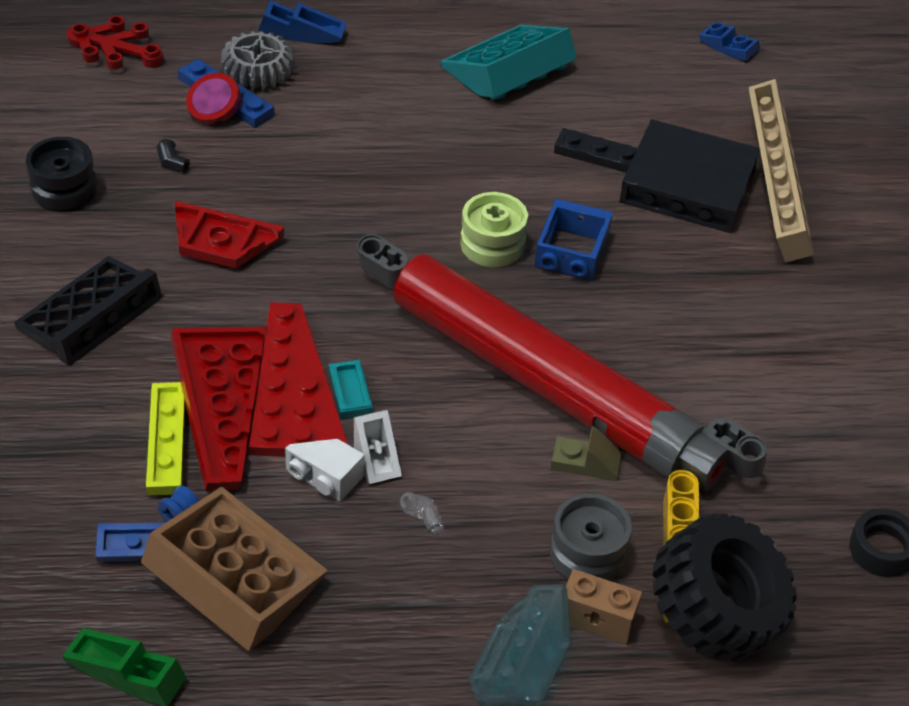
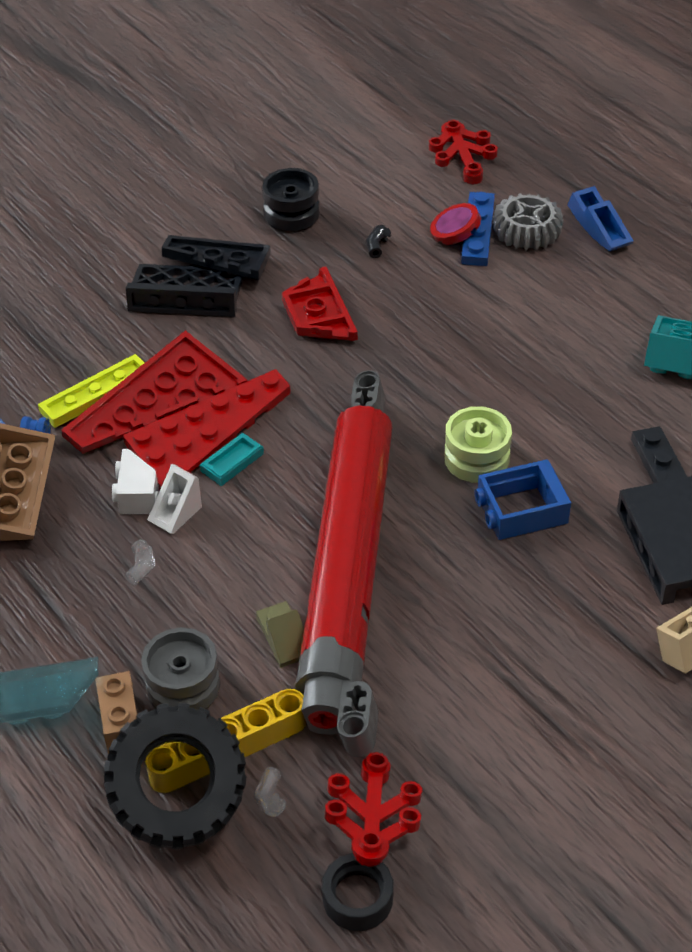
camera: 60 degrees right, 0 degrees up
(77, 258) = (226, 256): none -> black wing
(861, 503) = (369, 844): none -> red plant

